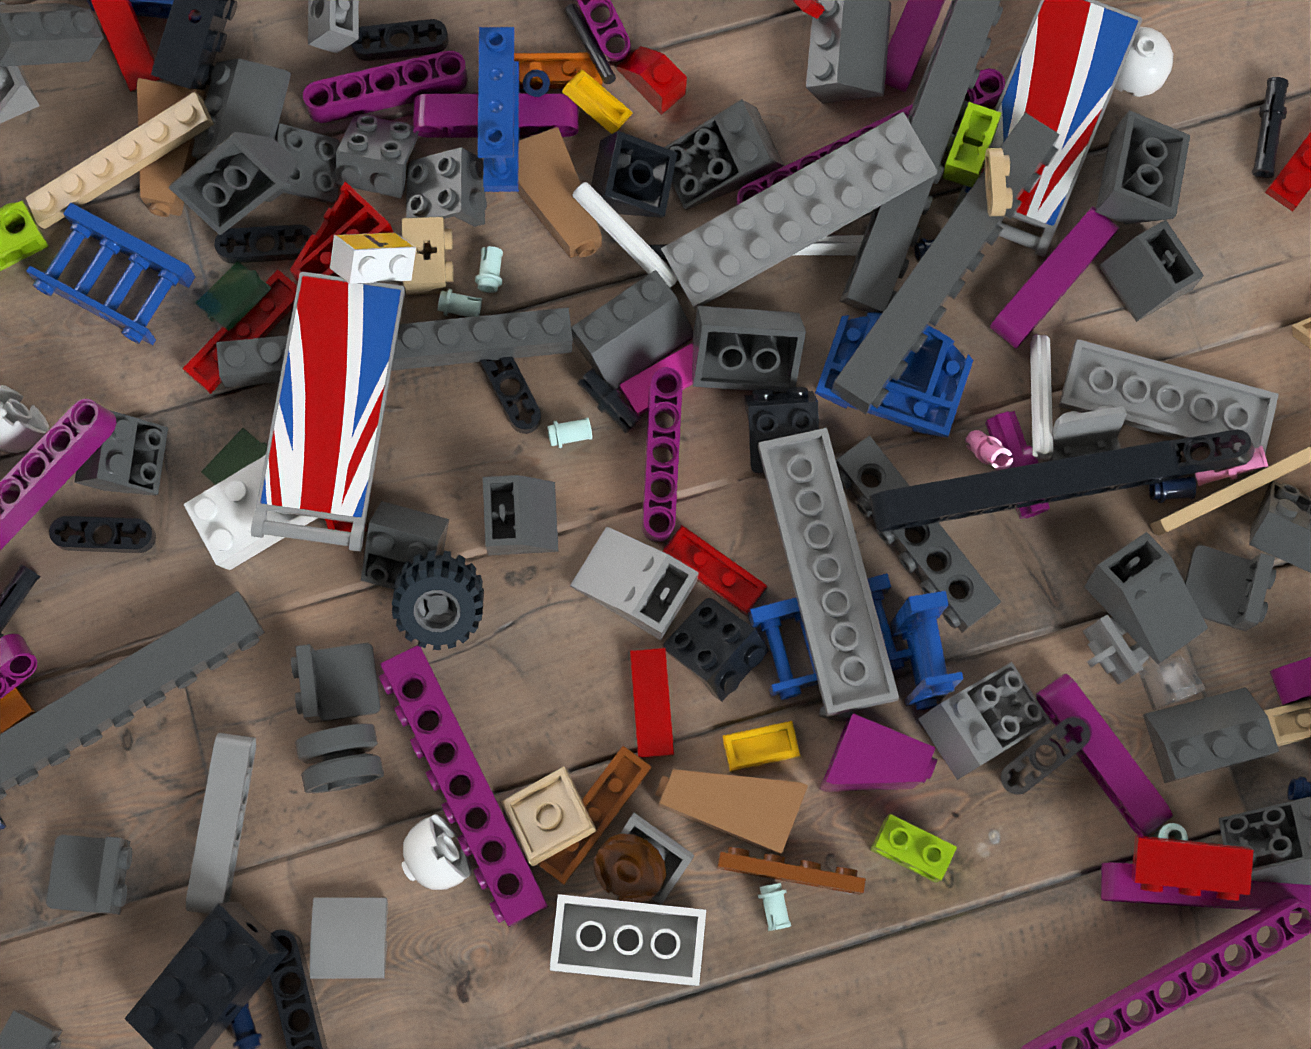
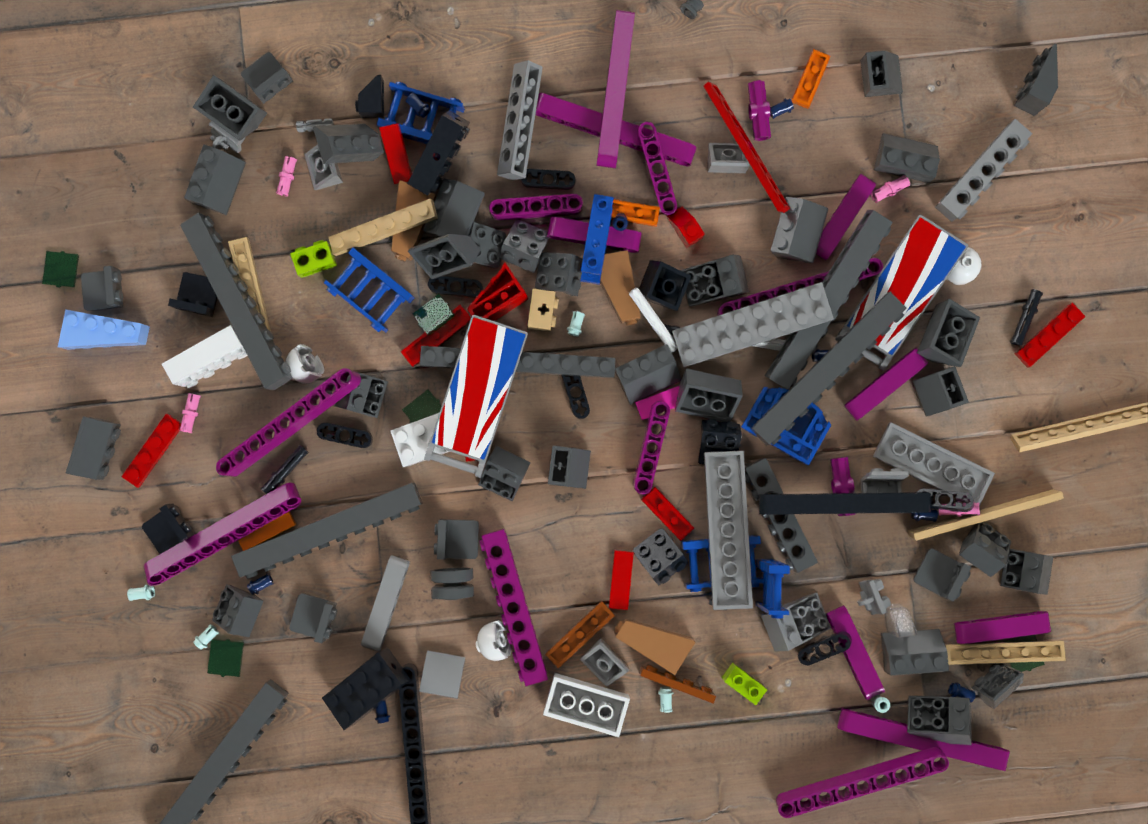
camera: 10 degrees right, 10 degrees up
(372, 258) = (513, 312): white brick -> none
(438, 600) = (517, 508): black wheel -> none
(459, 304) = (556, 341): light aqua pin -> none
(548, 816) = (556, 631): tan tile -> none
(569, 432) = (603, 424): light aqua pin -> none
(590, 44) = (654, 202): black bar -> none
(597, 101) = (652, 237): yellow tile -> none
(609, 400) = (628, 410): black pin -> none
(629, 868) = (594, 667): reddish brown tile -> none
(635, 581) = (624, 514): light grey slope -> none
(761, 746) = (674, 613): yellow tile -> none
(877, 759) = (733, 635): magenta slope -> none
(970, 144) = (856, 303): lime brick -> none
(989, 450) = (829, 478): bright pink pin -> none
(995, 169) = (865, 340): tan plate -> none
(1041, 397) = (864, 451): white axle -> none
(1147, 597) = (897, 575): dark grey slope -> none
(1192, 867) = (889, 725): red brick -> none

